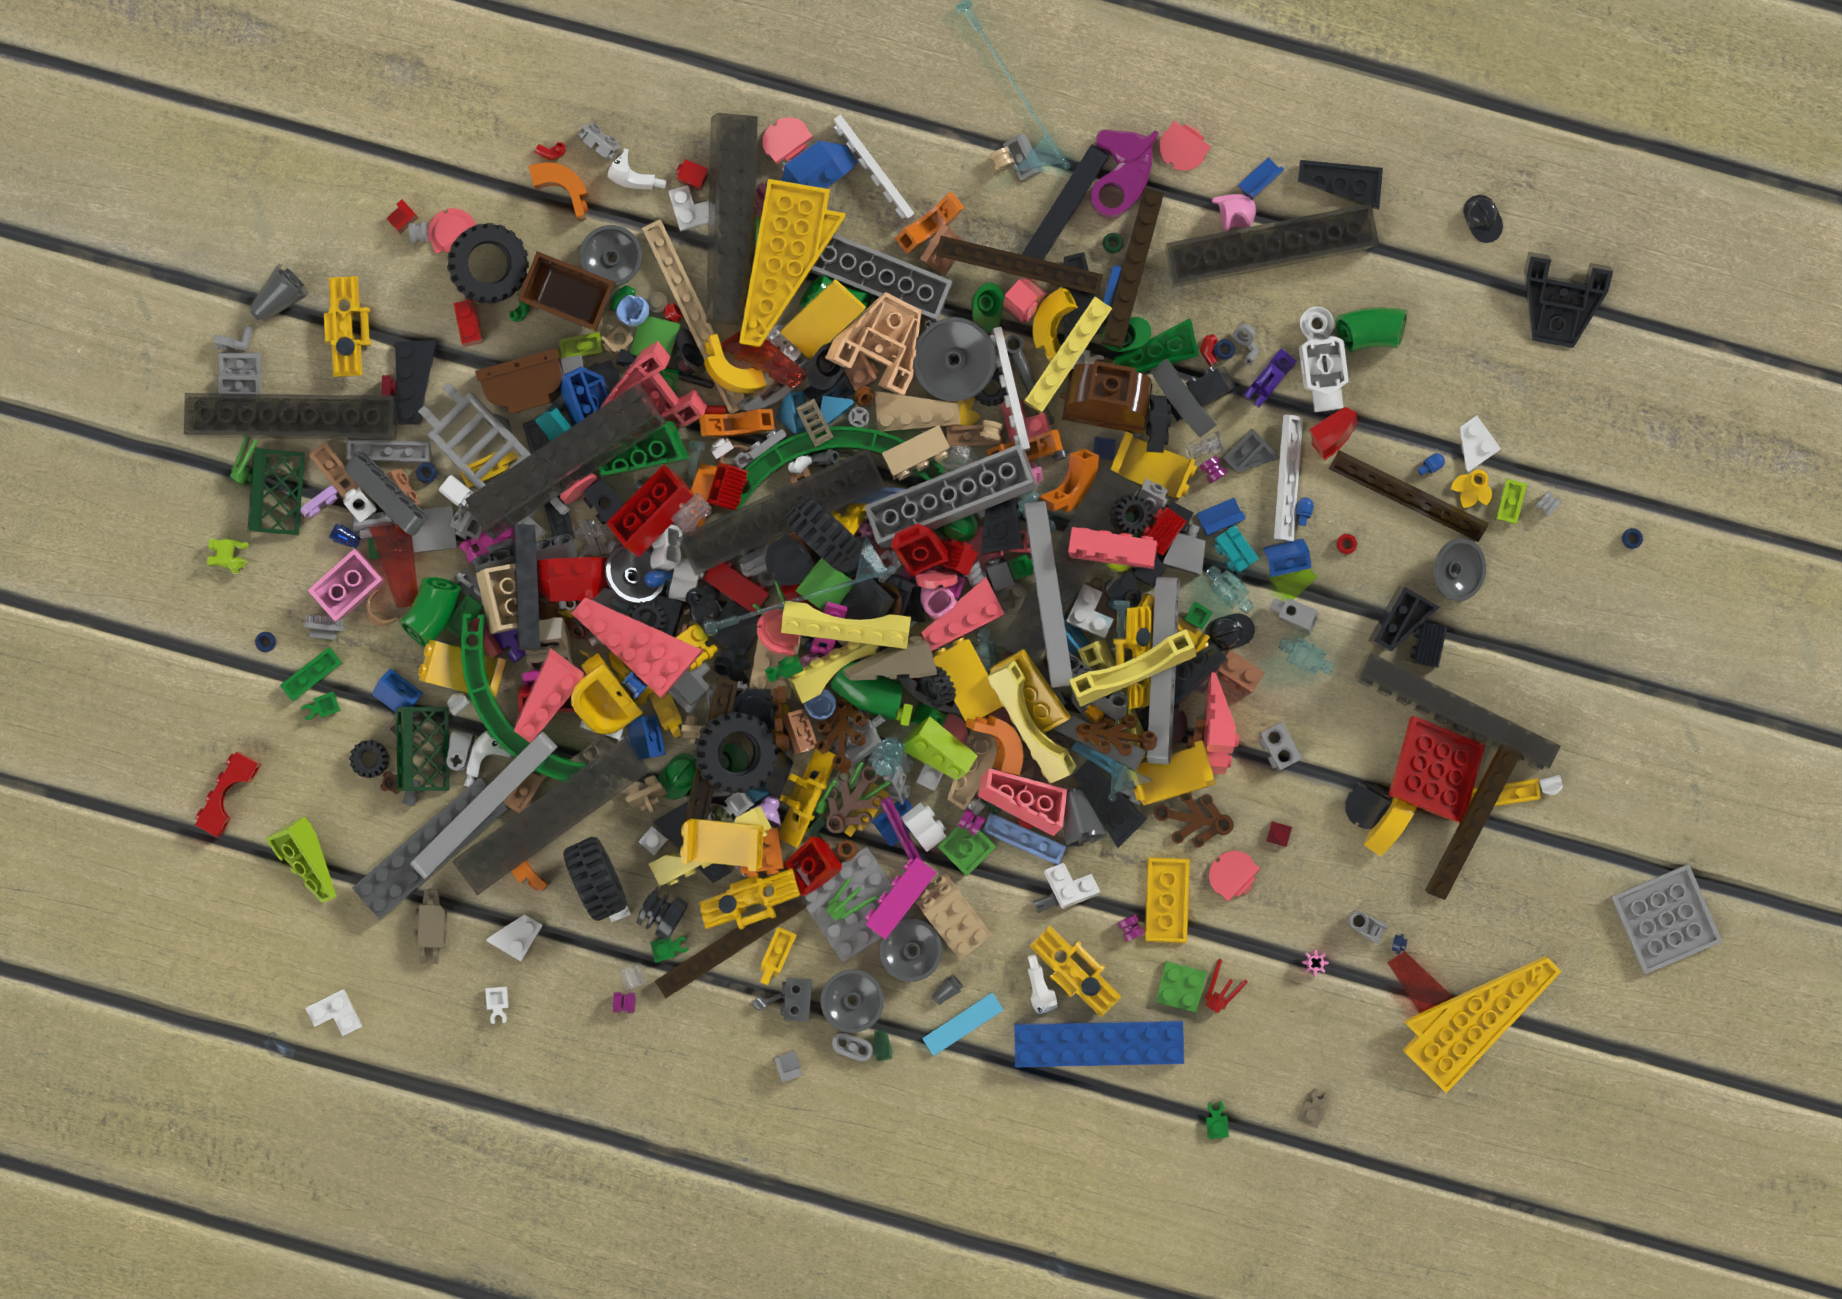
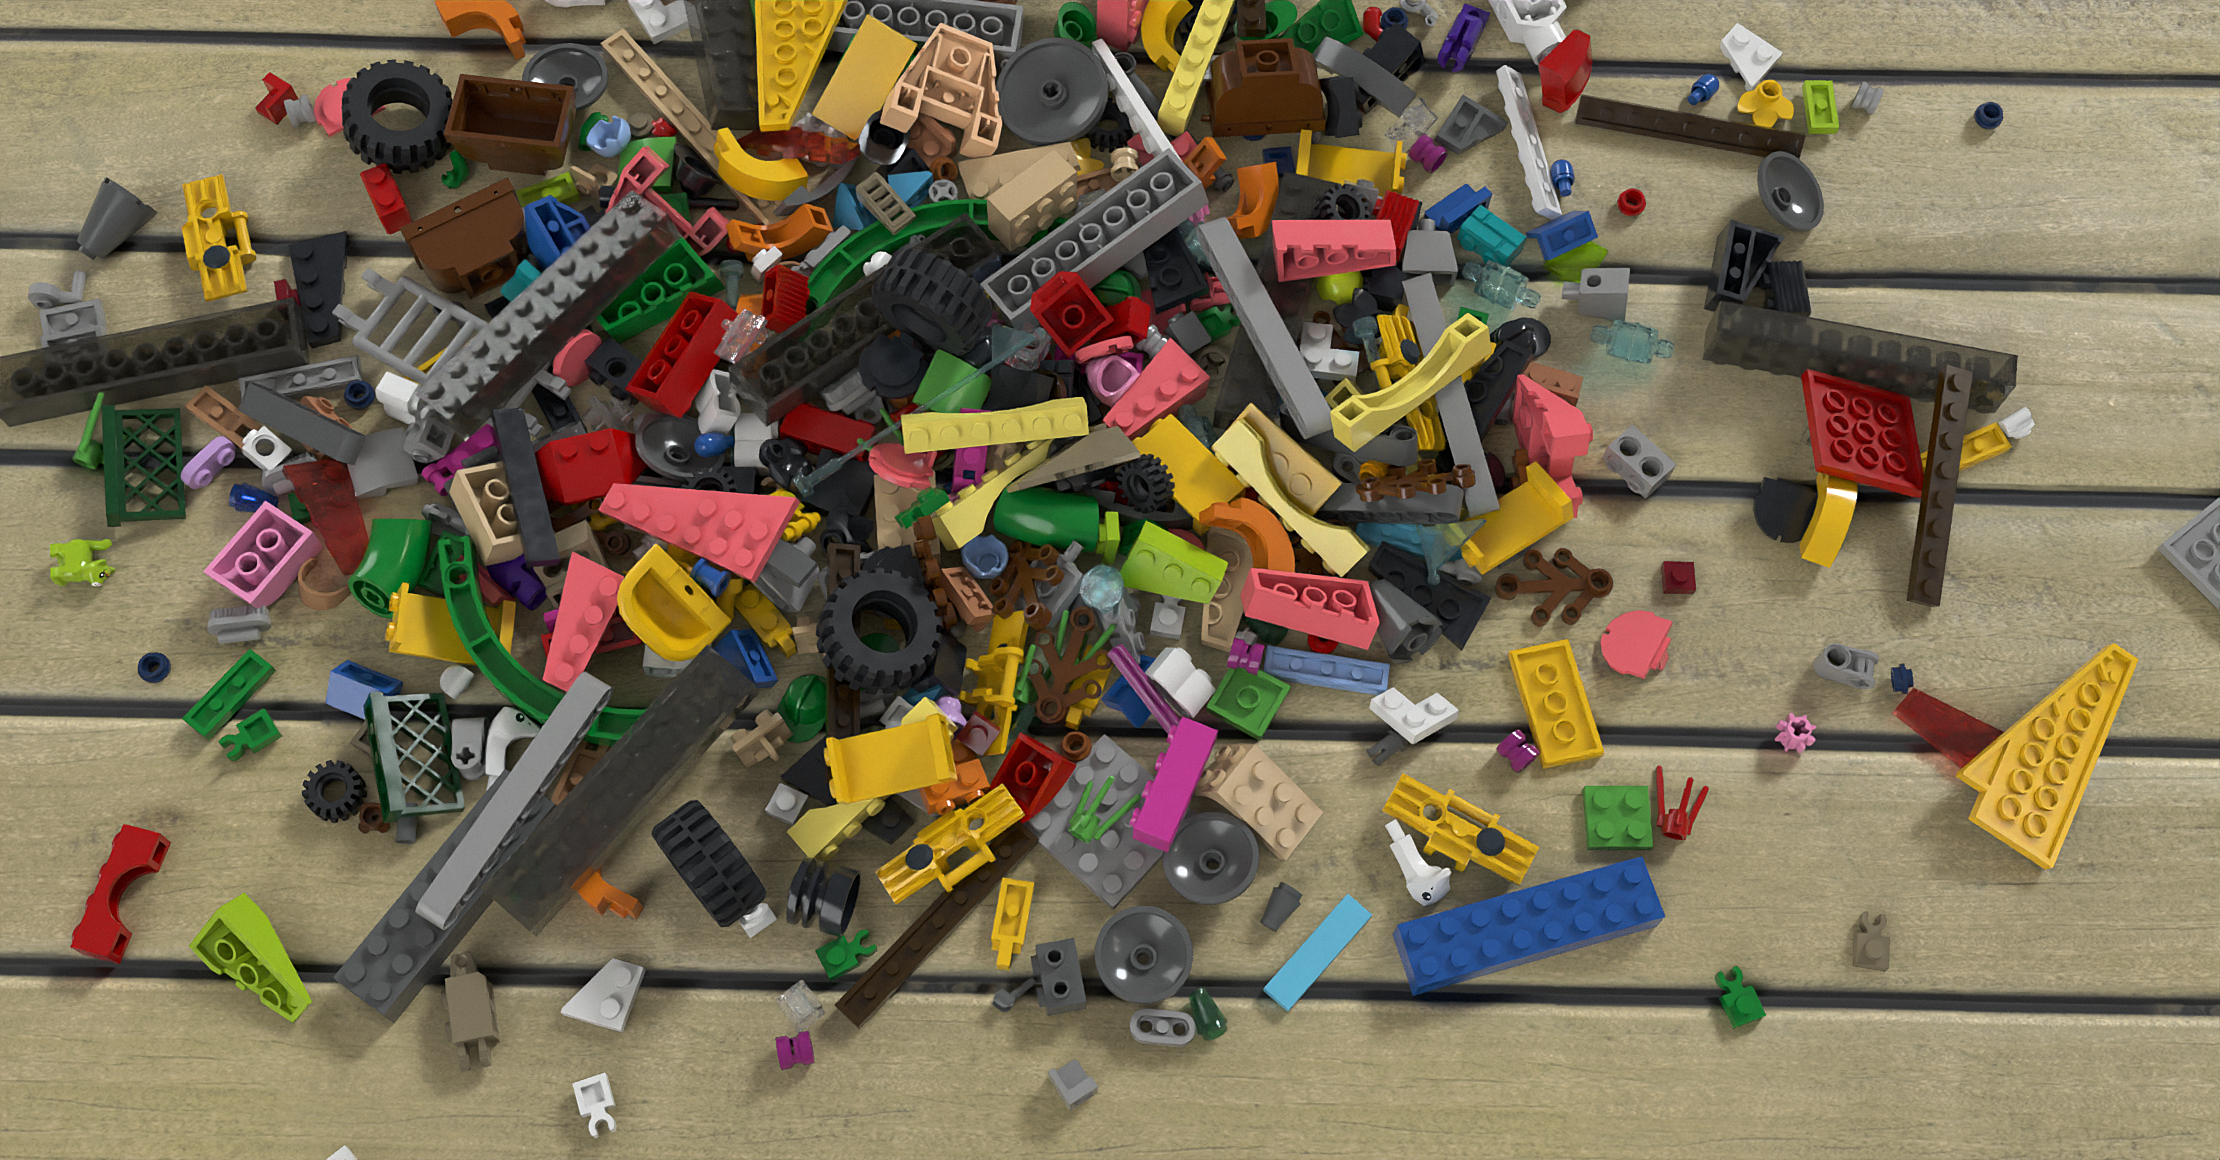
camera: 20 degrees left, 20 degrees down
(784, 831) = (978, 733): none -> dark red plate

